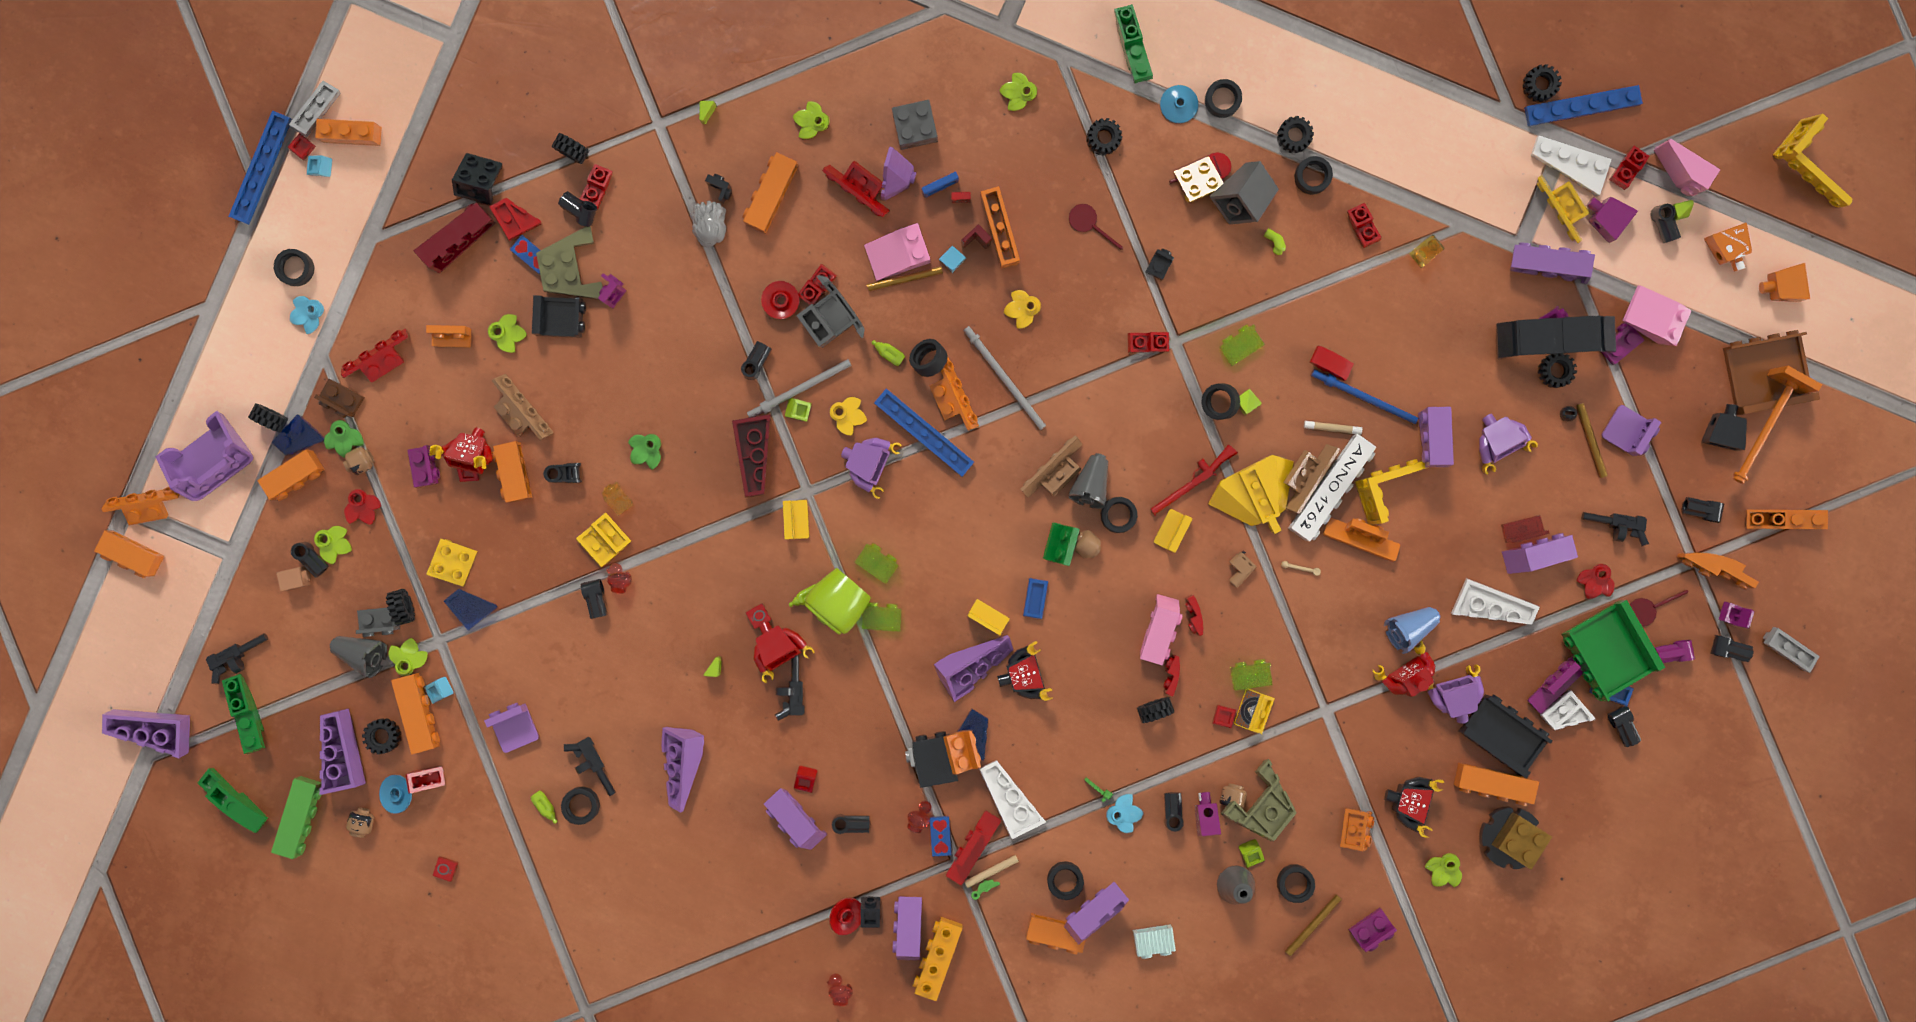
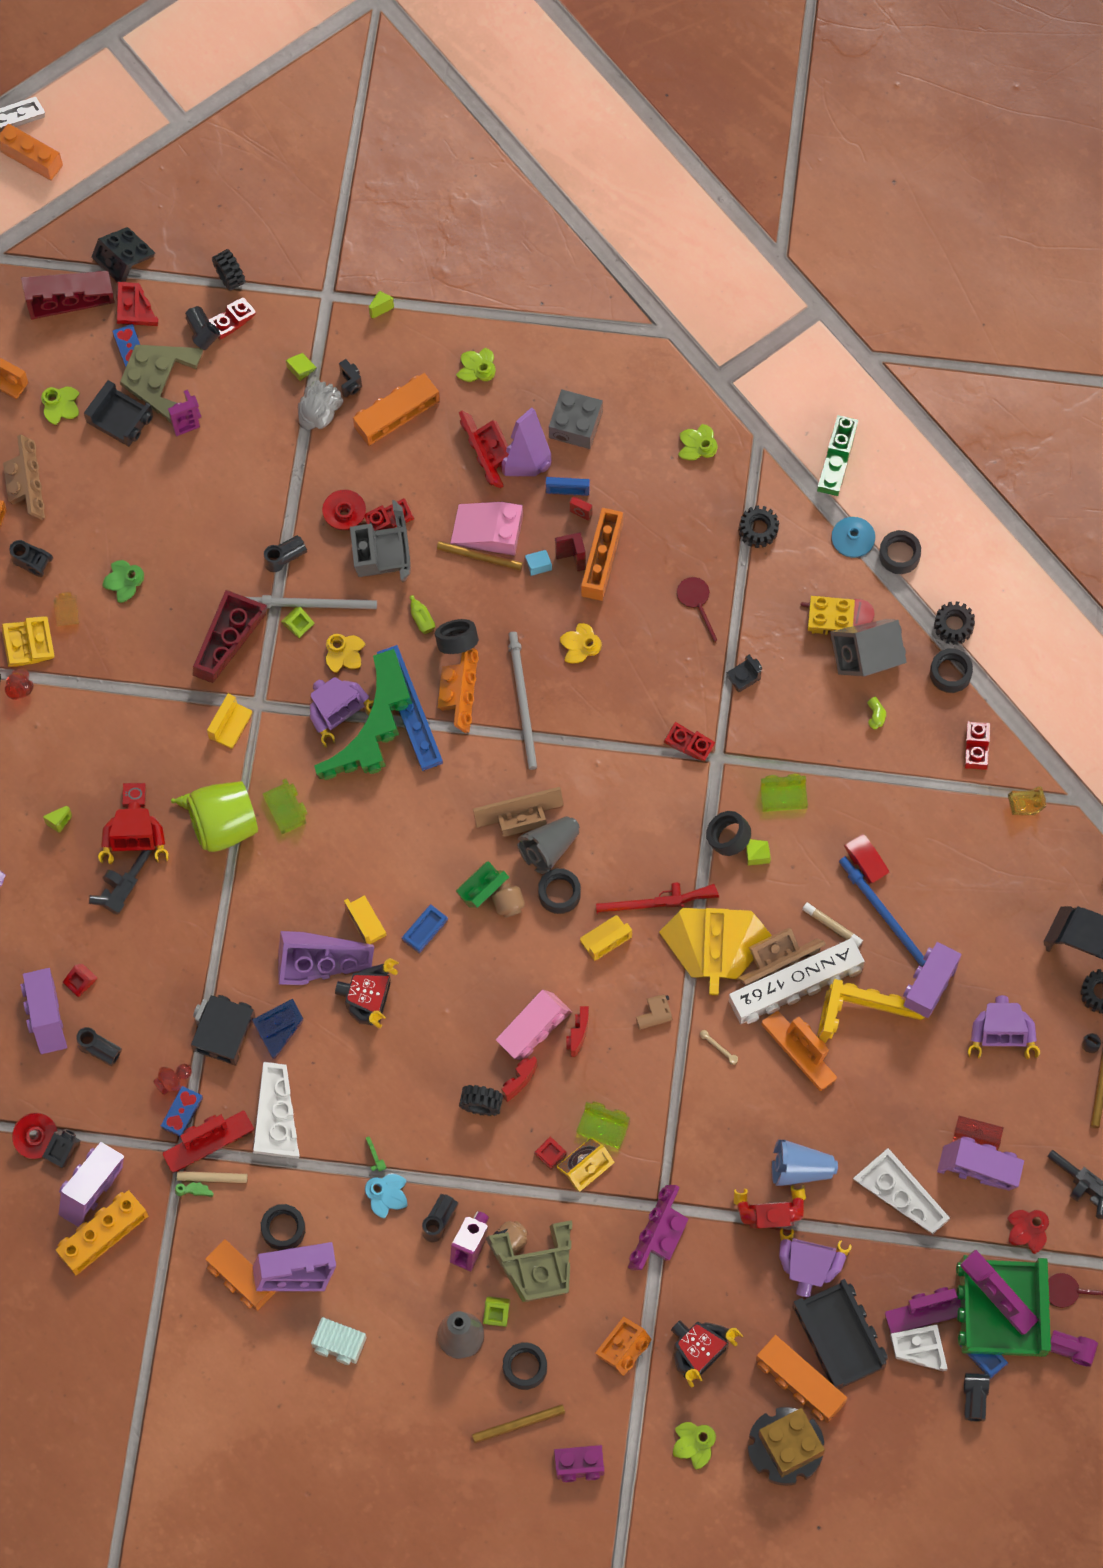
camera: 30 degrees right, 20 degrees down
(674, 196) = (300, 366): none -> lime slope
(882, 618) = (257, 861): clear neon green bracket -> none
(913, 487) = (380, 725): none -> green arch
(962, 751) = (255, 1031): orange bracket -> none
(1337, 731) = (662, 1230): none -> magenta bracket
(1607, 645) = (999, 1292): none -> magenta bracket

